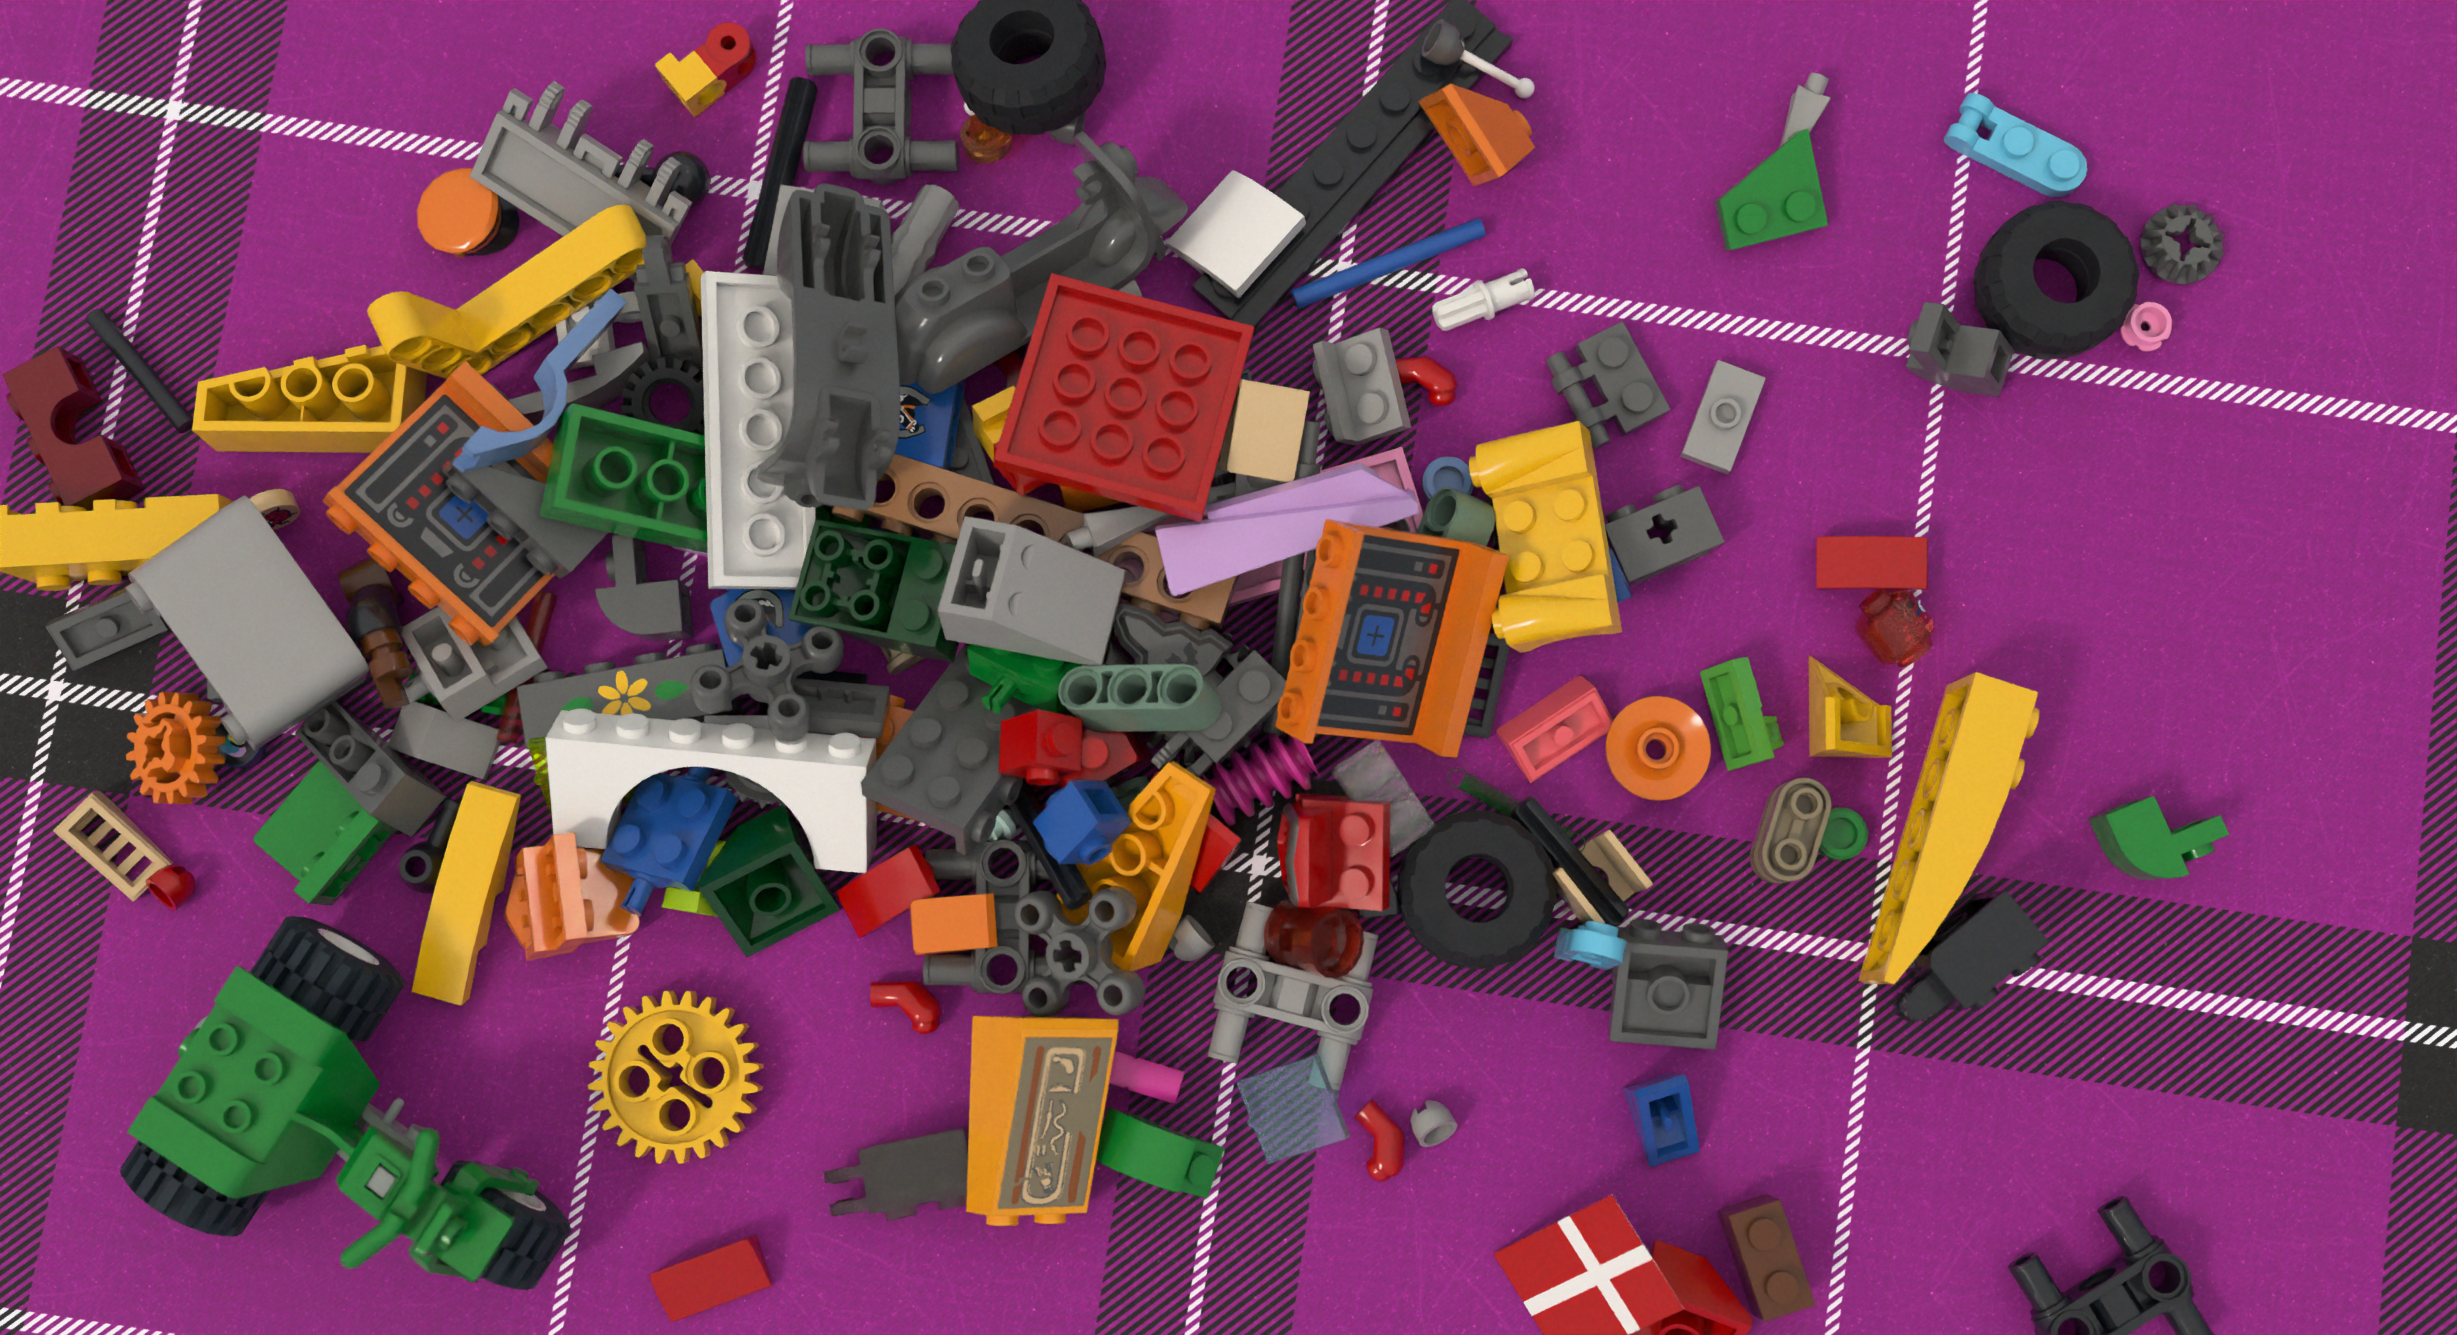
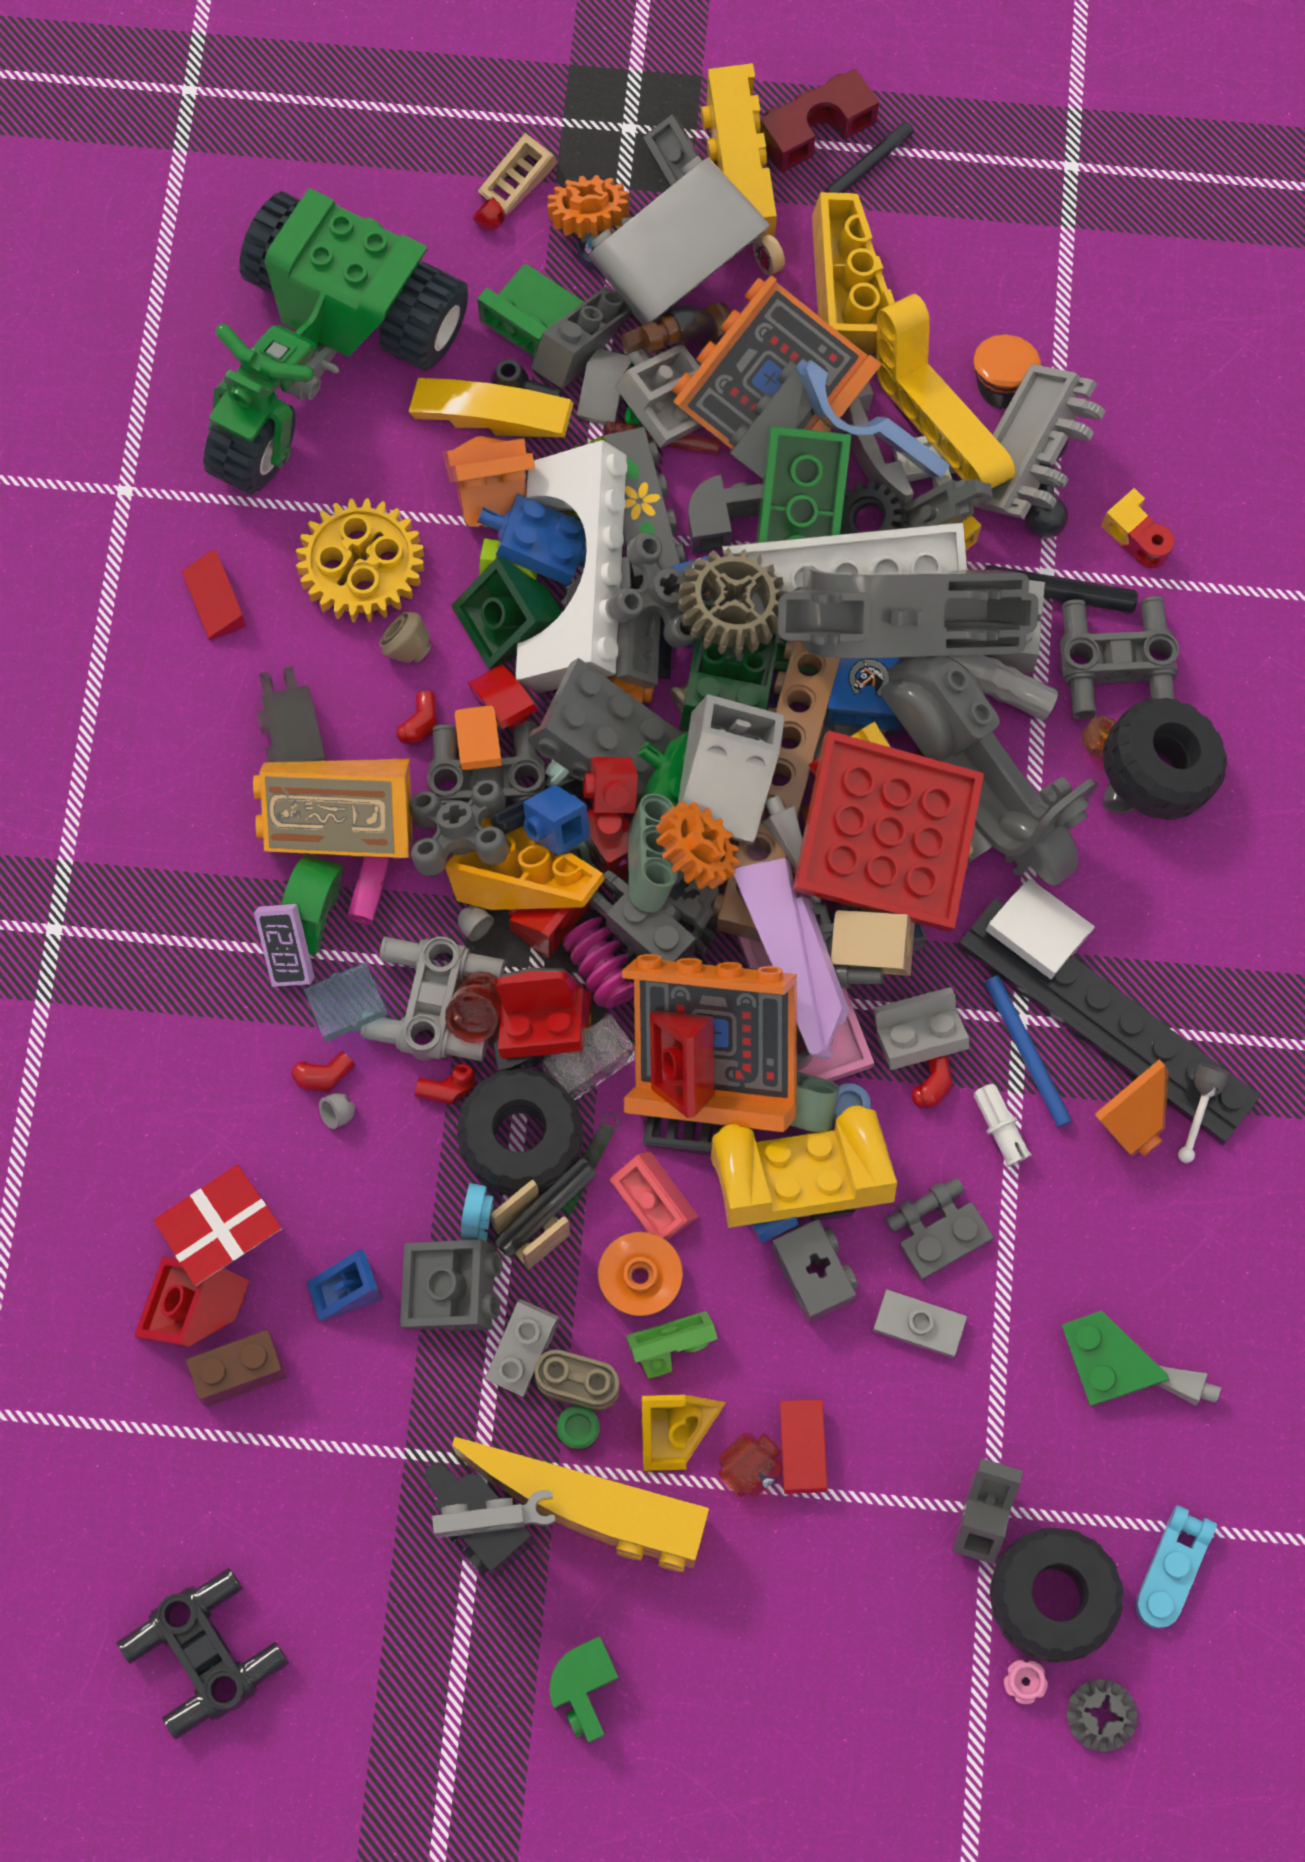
camera: 80 degrees right, 10 degrees down
(779, 586) = (731, 580): none -> dark tan gear
(794, 1018) = (406, 639): none -> dark tan cone
(1144, 636) = (697, 845): none -> orange gear
(1218, 1187) = (284, 945): none -> tile
(1407, 678) = (682, 1059): none -> red slope
(1409, 978) = (450, 1089): none -> red arm
(1744, 897) = (521, 1346): none -> light grey plate
(1995, 931) = (498, 1515): none -> light grey plate

